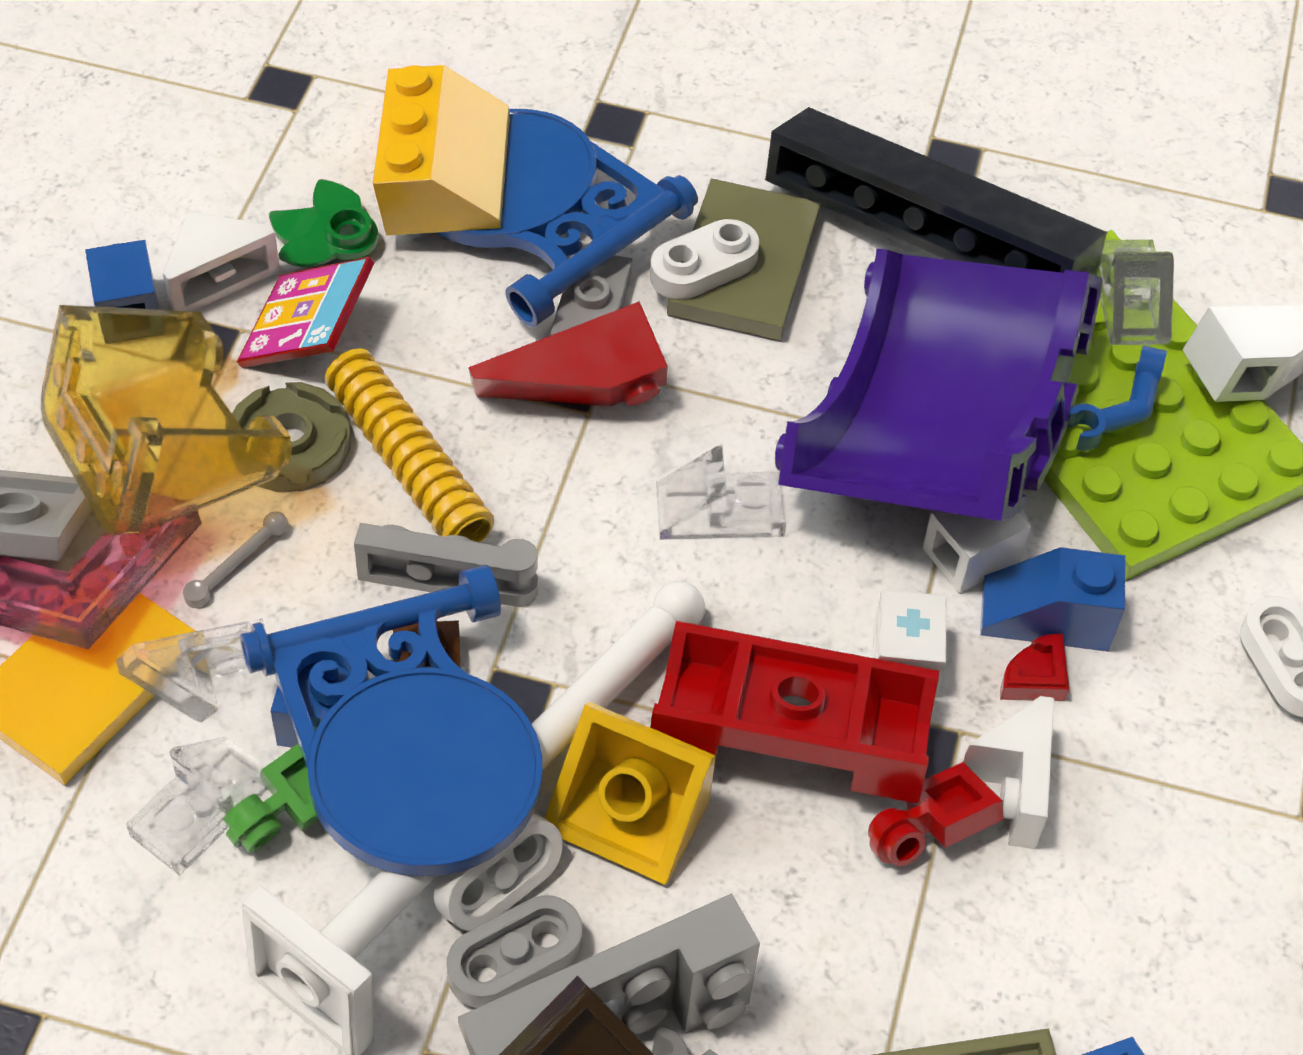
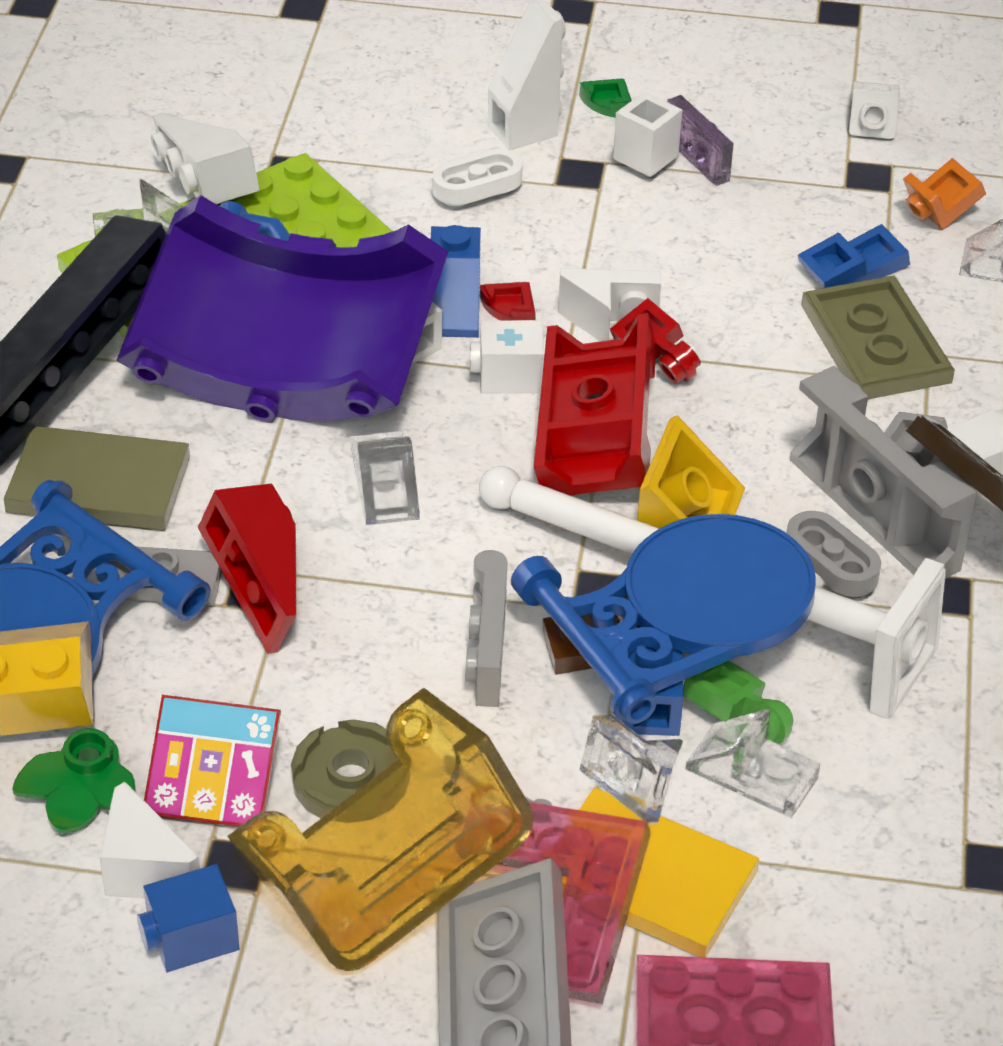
camera: 95 degrees left, 10 degrees down
(407, 447) = (367, 670): yellow piece -> none
(710, 259) = (119, 488): white plate -> none

